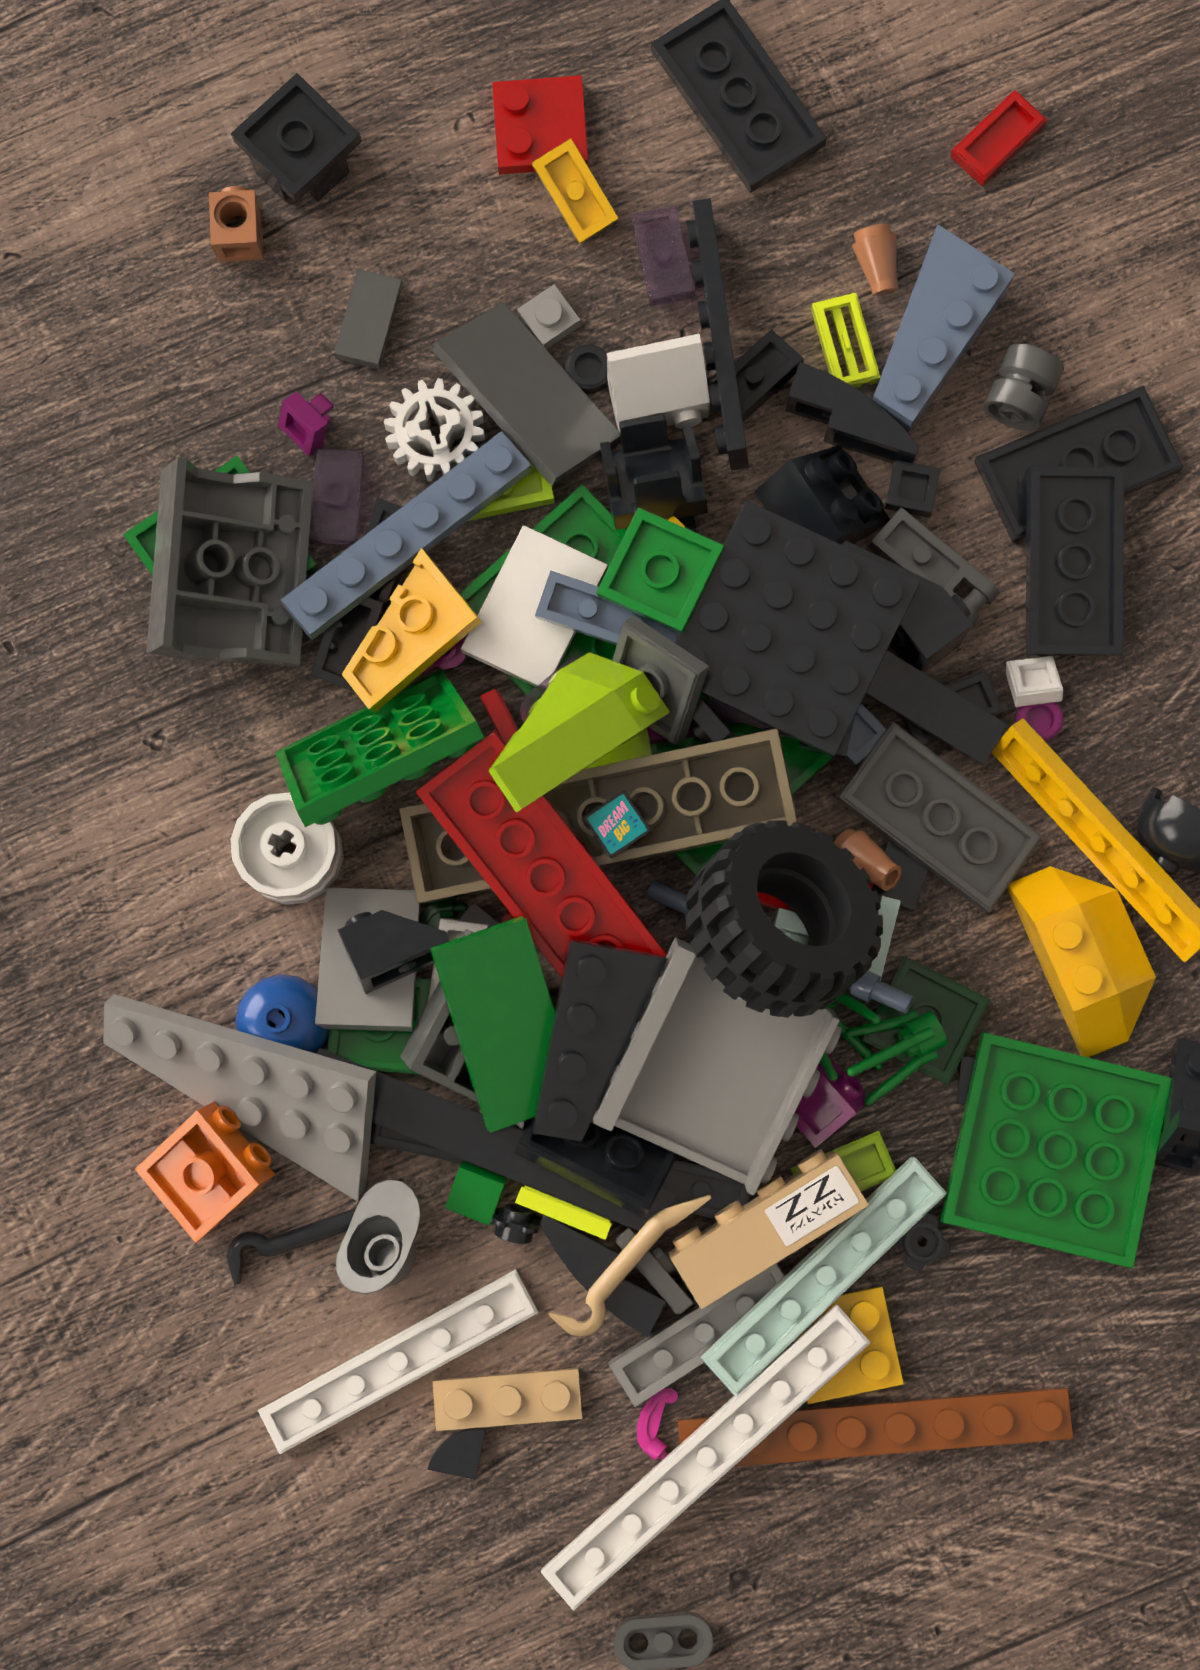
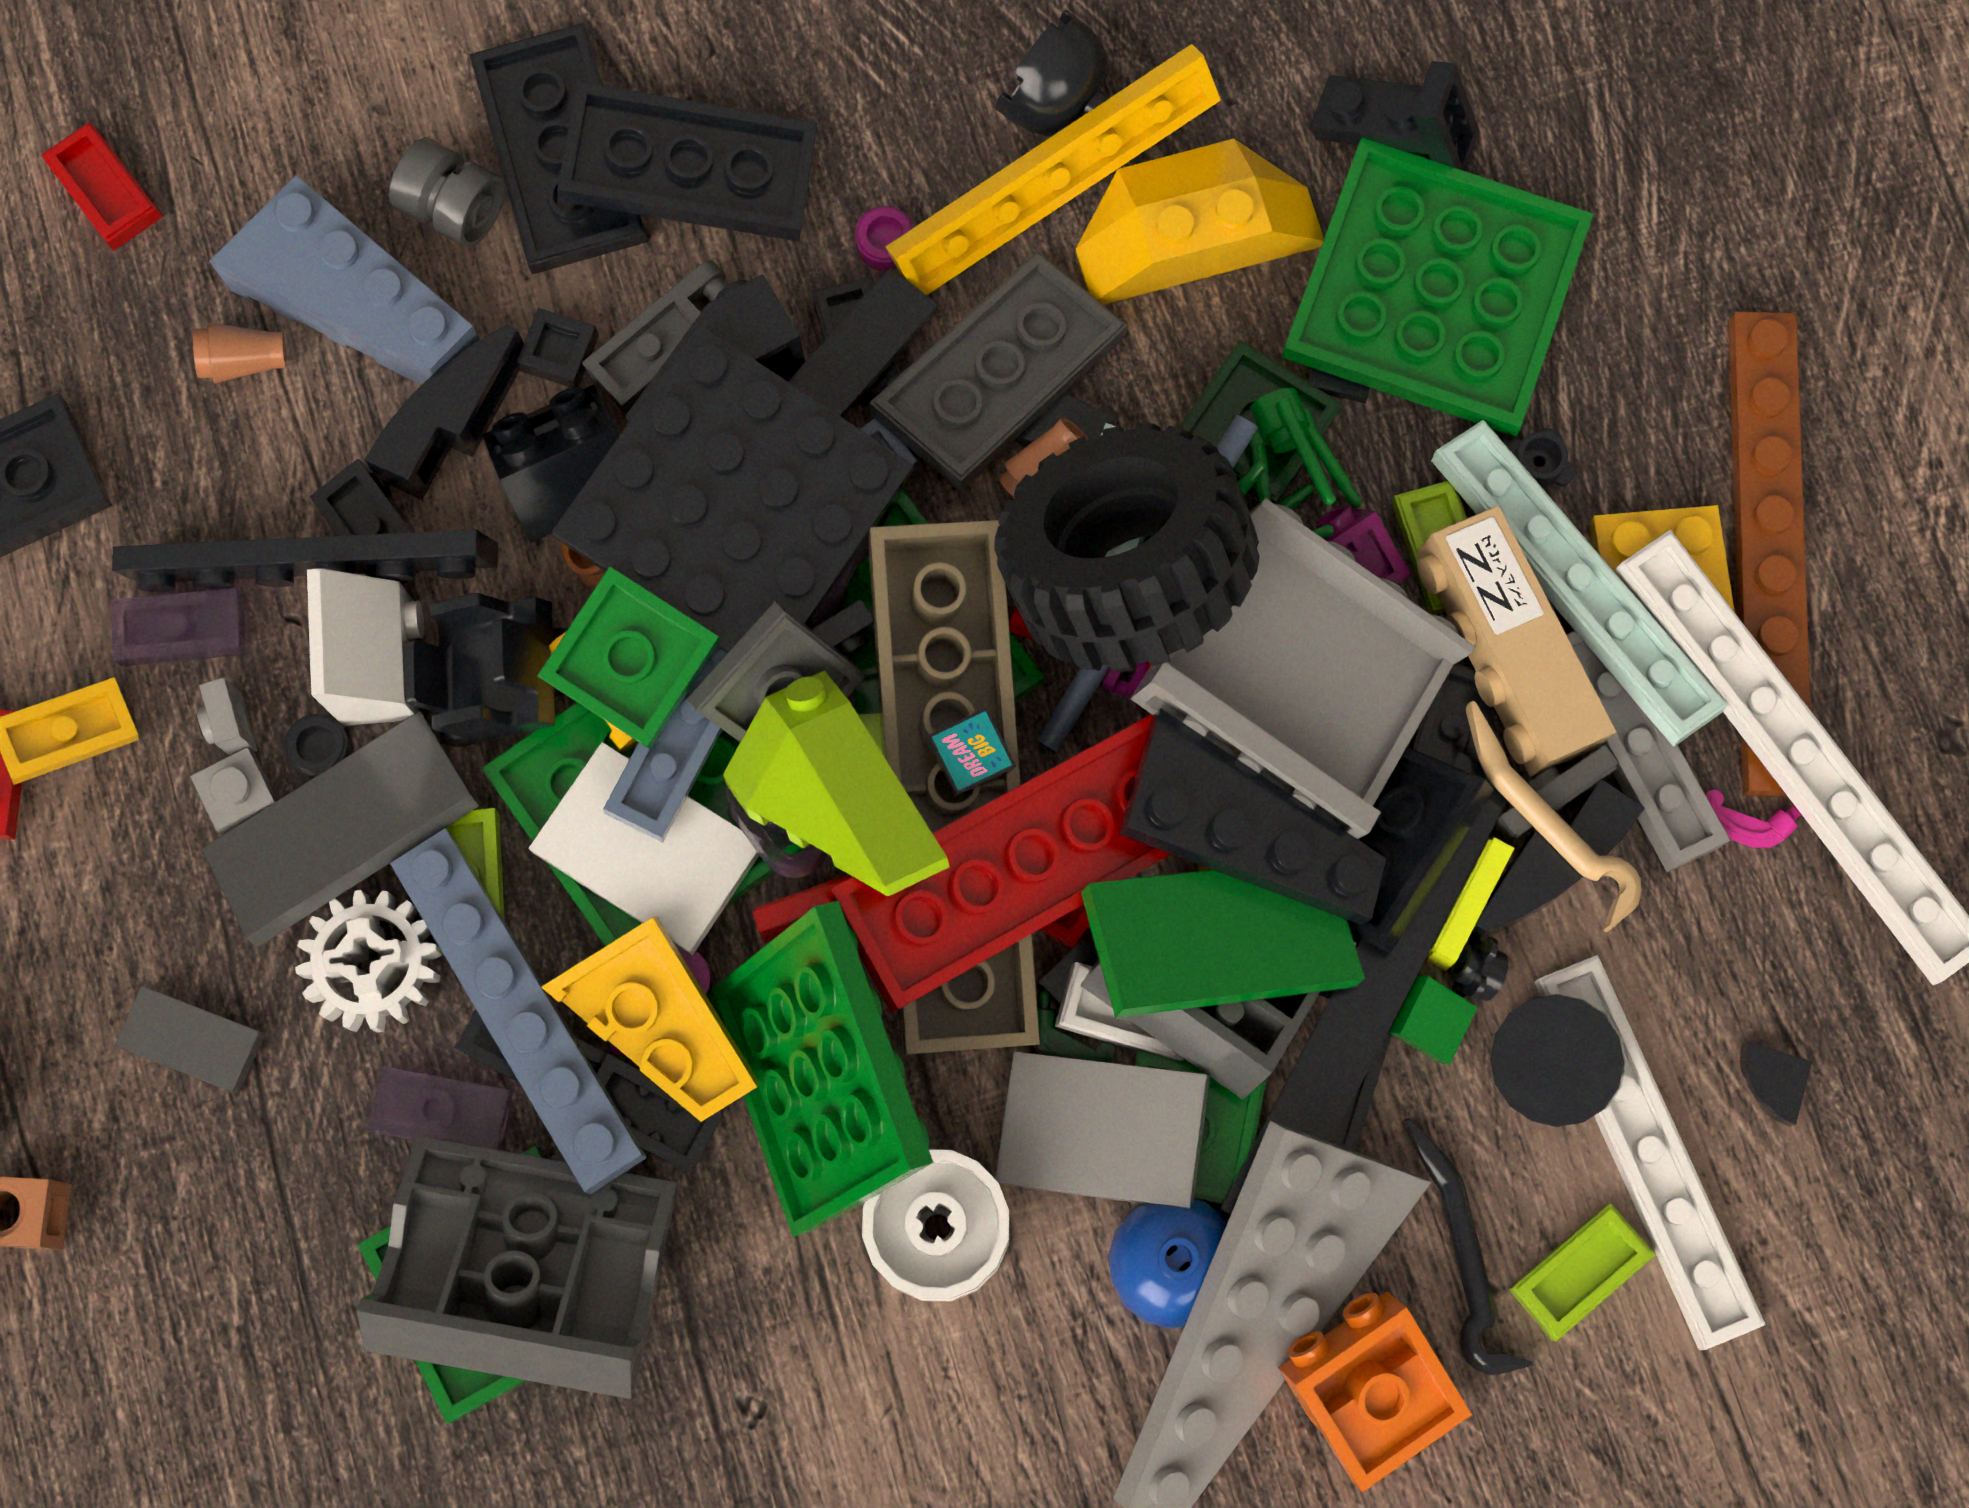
camera: 85 degrees left, 5 degrees down
(305, 420) = (325, 1141): magenta tile -> none
(305, 1317) = (1581, 1272): none -> lime tile
(380, 1239) = (1488, 1150): piece -> none
(388, 947) = (1094, 1092): black slope -> none
(454, 1287) = (1558, 1060): none -> black tile
(507, 1399) = (1707, 1010): tan plate -> none
(598, 300) = (225, 717): none -> light grey plate
(834, 305) = (336, 388): neon yellow tile -> none
(1034, 681) = (836, 233): white tile -> none

